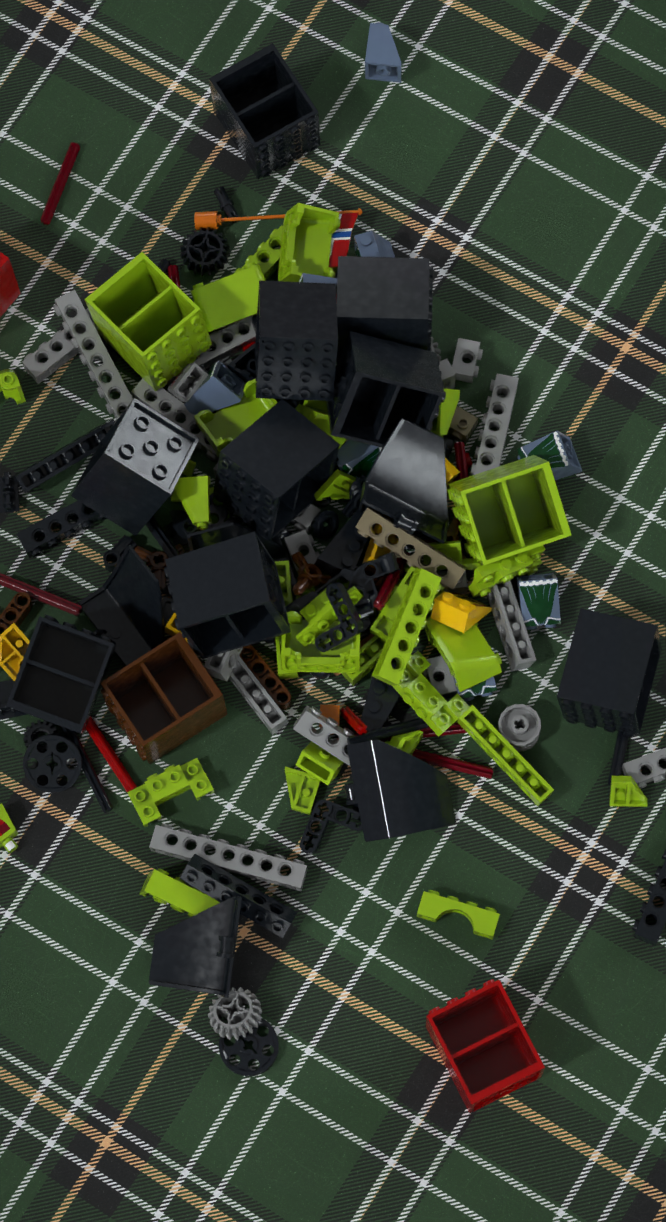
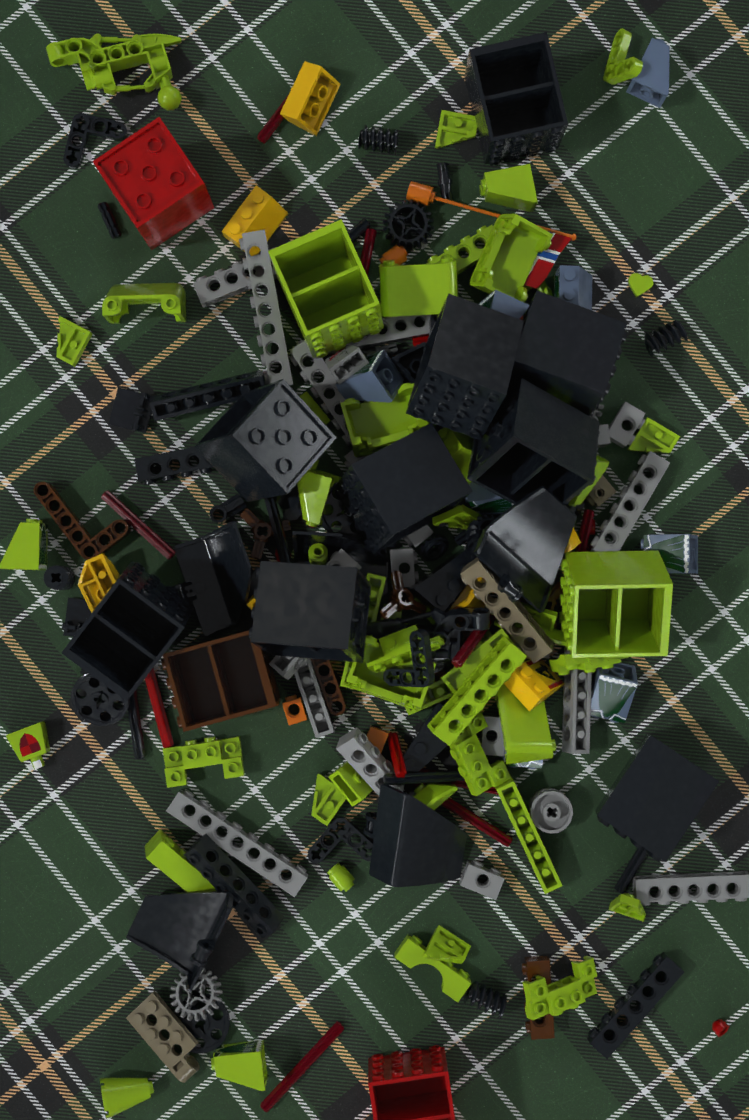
camera: 10 degrees right, 15 degrees up
(59, 281) = (256, 213): none -> yellow slope
(79, 170) = (310, 98): none -> yellow slope
(153, 186) = (378, 139): none -> black piece
(193, 1136) = (124, 1093): none -> lime cone
(202, 276) = (396, 253): none -> orange brick
(220, 156) = (455, 128): none -> lime wing
(239, 1088) = (181, 1065): none -> dark tan hinge
(245, 723) = (294, 718): none -> orange brick
(287, 188) = (510, 188): none -> lime slope
(302, 1065) = (242, 1064): none -> lime slope
(340, 858) = (341, 877): none -> lime brick
(350, 56) = (618, 68): none -> lime beam
(363, 1055) = (302, 1066): none -> dark red axle
(436, 236) = (639, 284): none -> lime tile
(464, 889) = (446, 947): none -> lime wing
(467, 821) = (489, 888): none -> light grey brick
(474, 271) = (664, 336): none -> black piece
(497, 361) = (654, 438): none -> lime wing
(520, 926) = (486, 998): none -> black piece
(564, 879) = (545, 1027): none -> reddish brown brick
(574, 901) = (561, 994): none -> lime bracket

